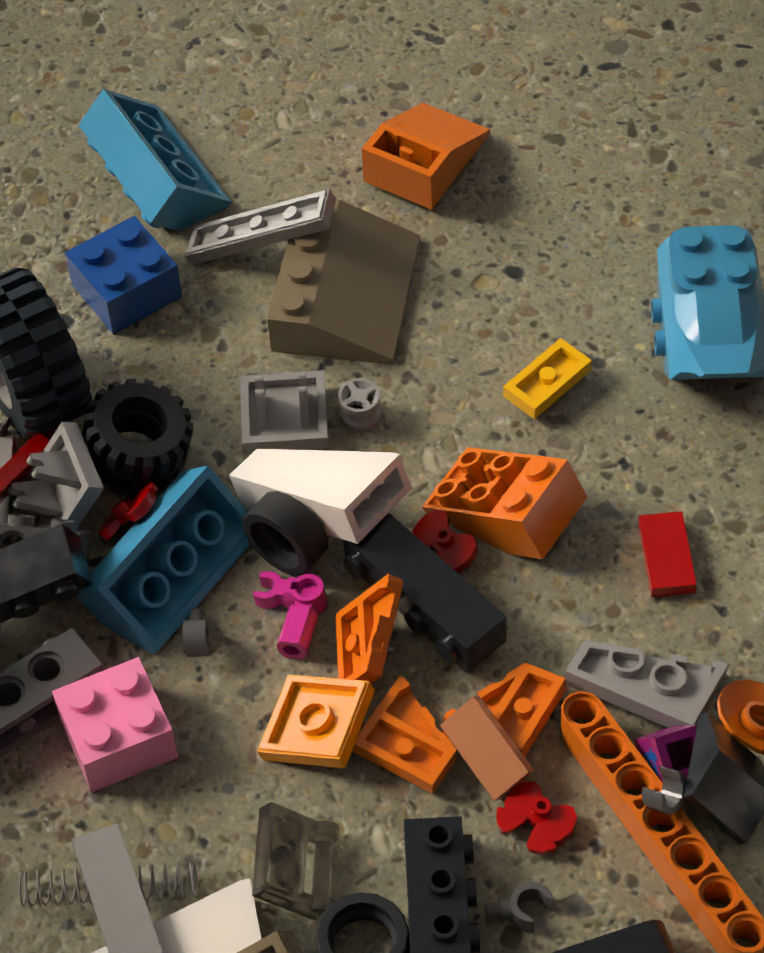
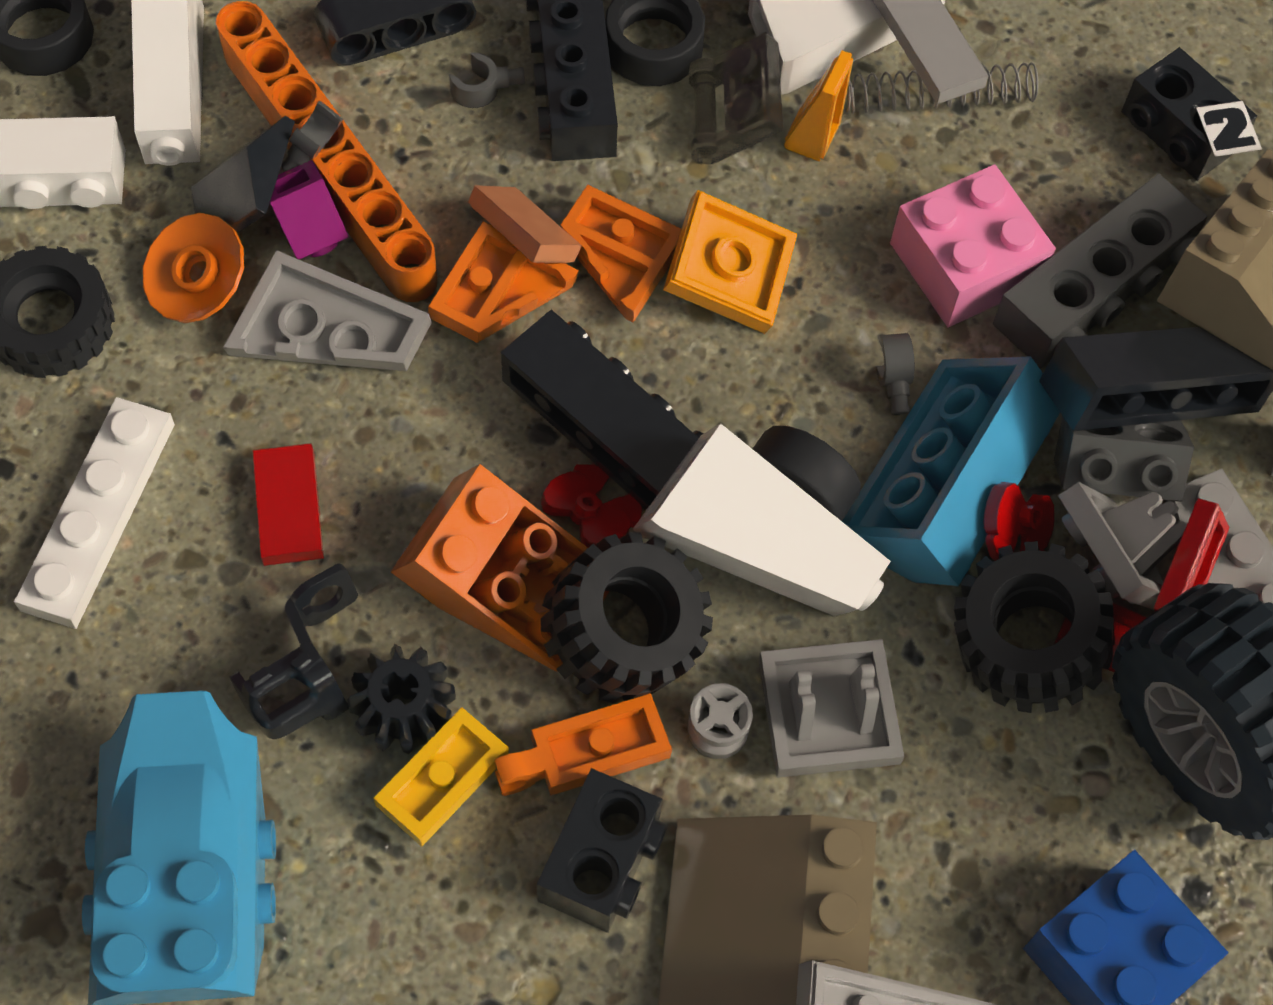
camera: 170 degrees right, 10 degrees up
(222, 839) = (821, 111): none -> light orange slope
(304, 599) = (766, 397): dark pink bar -> none
(366, 630) = (680, 356): orange wing -> none
(429, 435) = (662, 591): none -> black tyre
(443, 333) = (588, 846): none -> black brick
(449, 390) = (605, 739): none -> orange plate
(551, 822) = (451, 166): red piece -> none
(575, 418) = (410, 679): none -> black gear
(633, 431) = (303, 664): none -> black piece

